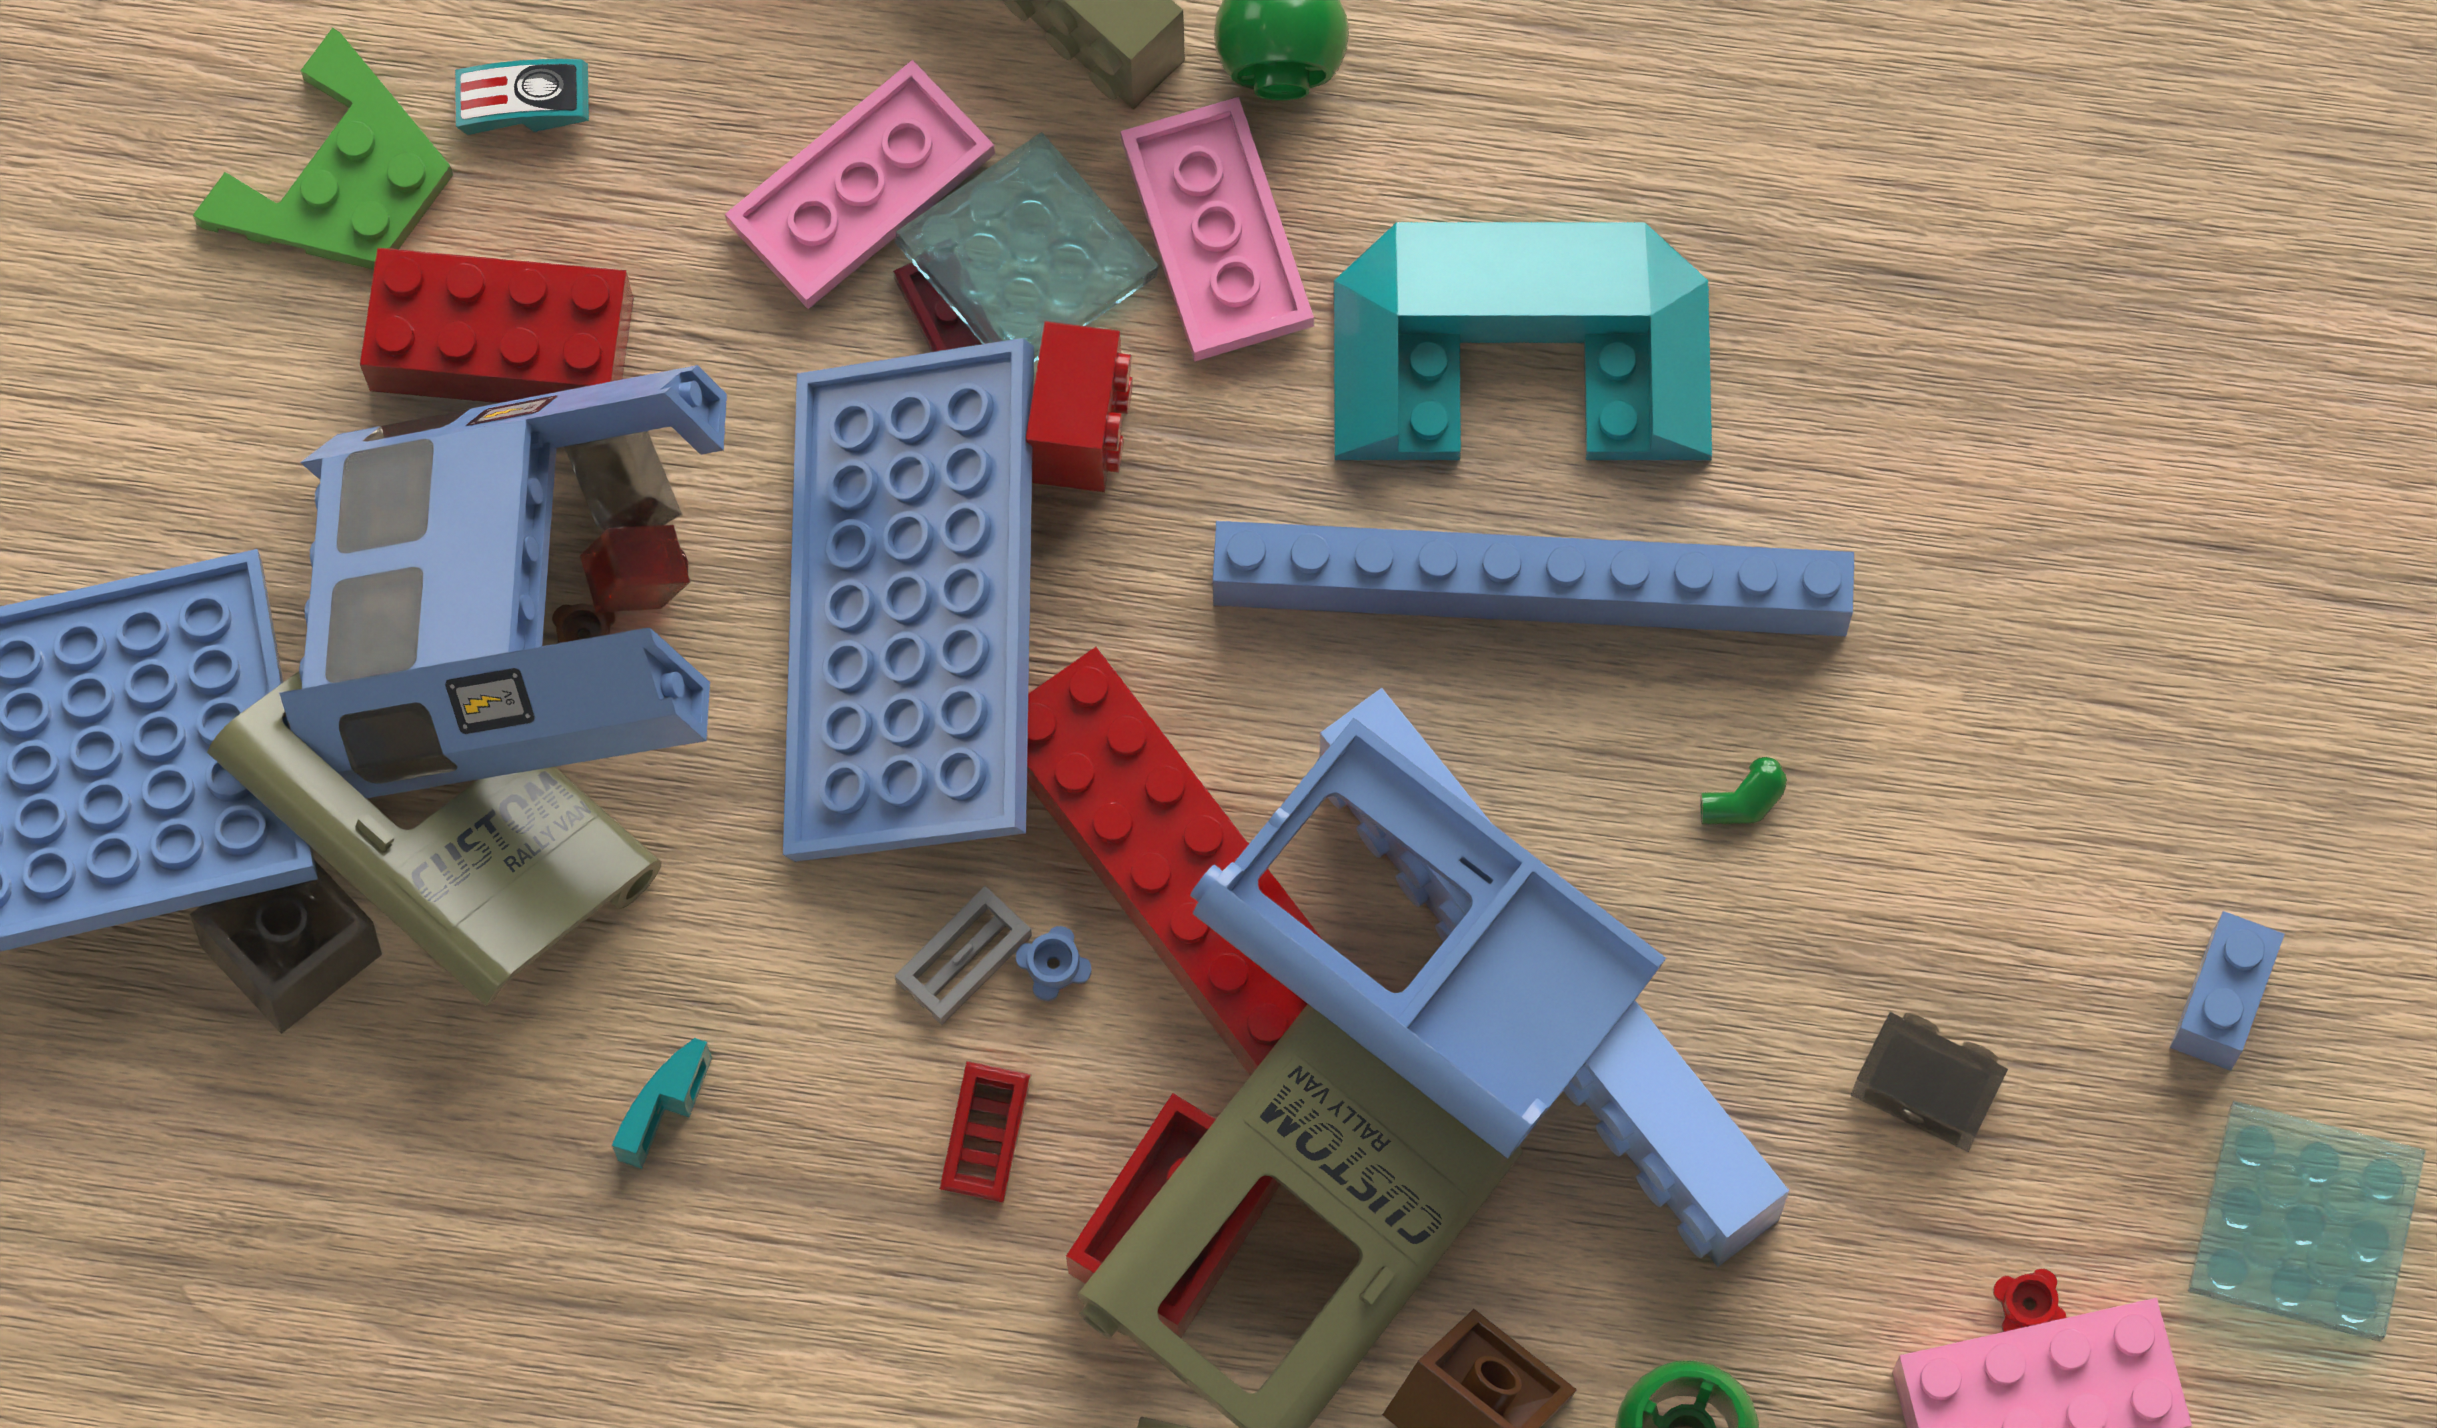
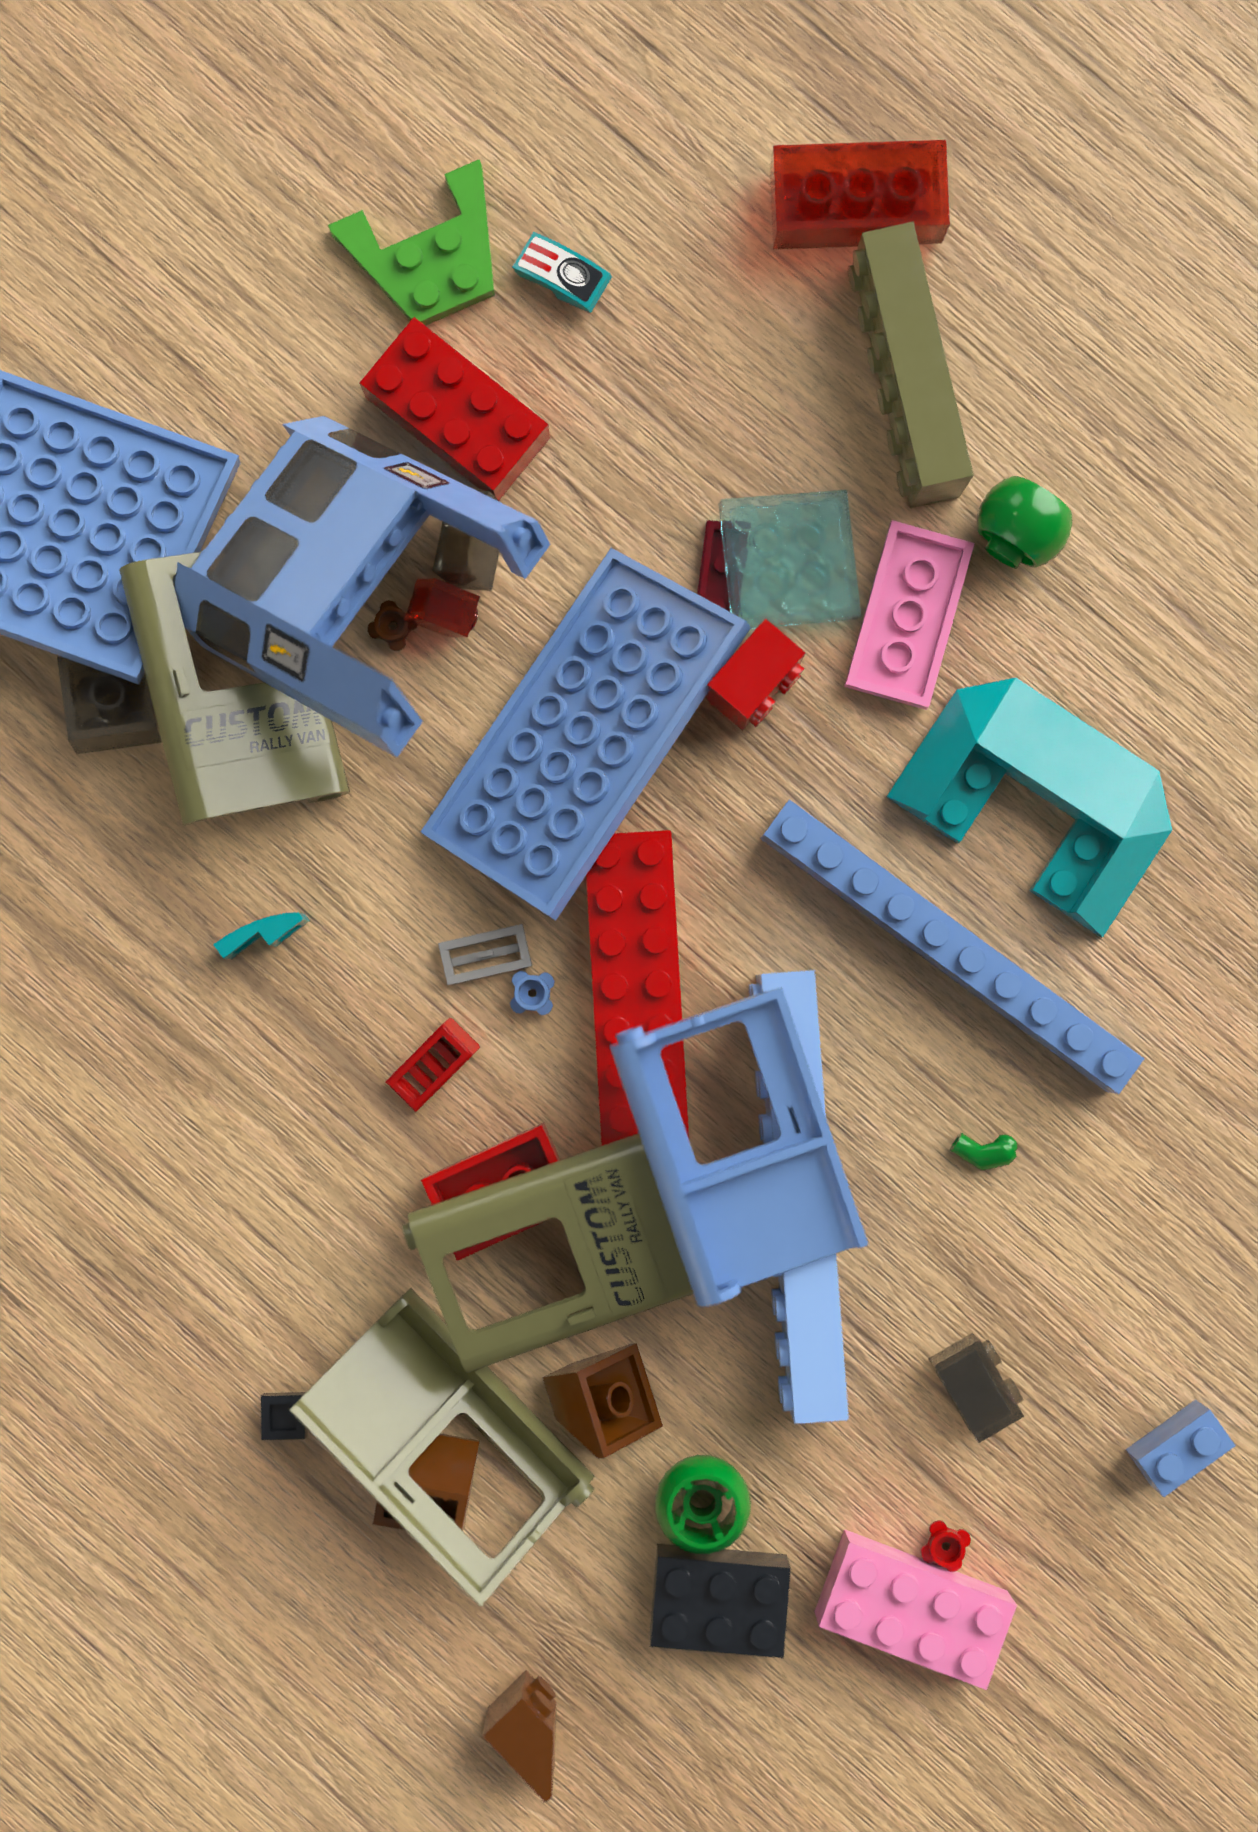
camera: 30 degrees right, 15 degrees up
(860, 184) = (722, 454): bright pink plate -> none
(2307, 1221) = (1133, 1604): clear light blue plate -> none

